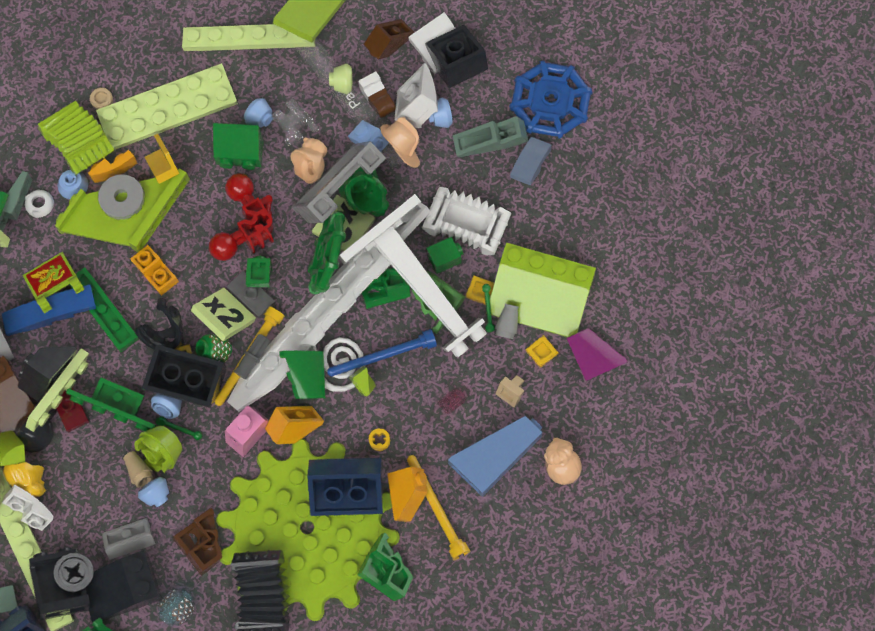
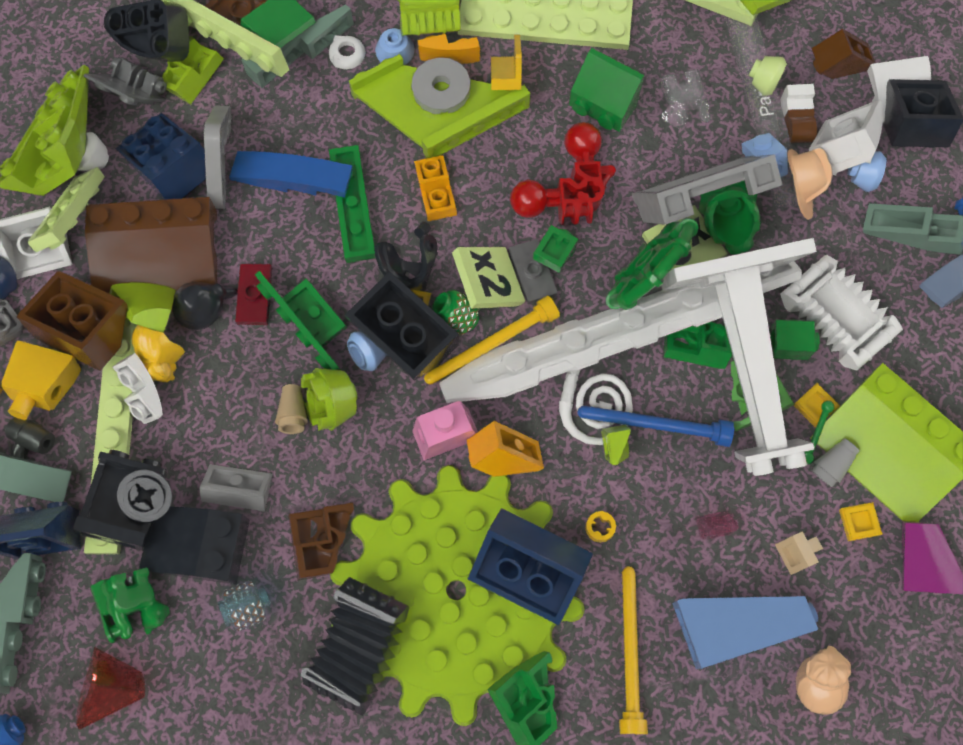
camera: 25 degrees right, 0 degrees up
(44, 369) = (246, 237): black slope -> none
(50, 278) = (311, 138): flag -> none
(53, 396) = (238, 272): yellowish green plate -> none
(154, 492) = (295, 448): light blue cone -> none
(161, 421) = (351, 367): green hinge -> none
(252, 356) = (496, 344): dark grey axle -> none
(258, 113) = (651, 65): light blue cone -> none
(306, 373) = (551, 397): green slope -> none
(309, 160) = (681, 149): light nougat hair -> none
(407, 492) = (604, 613): light orange slope -> none

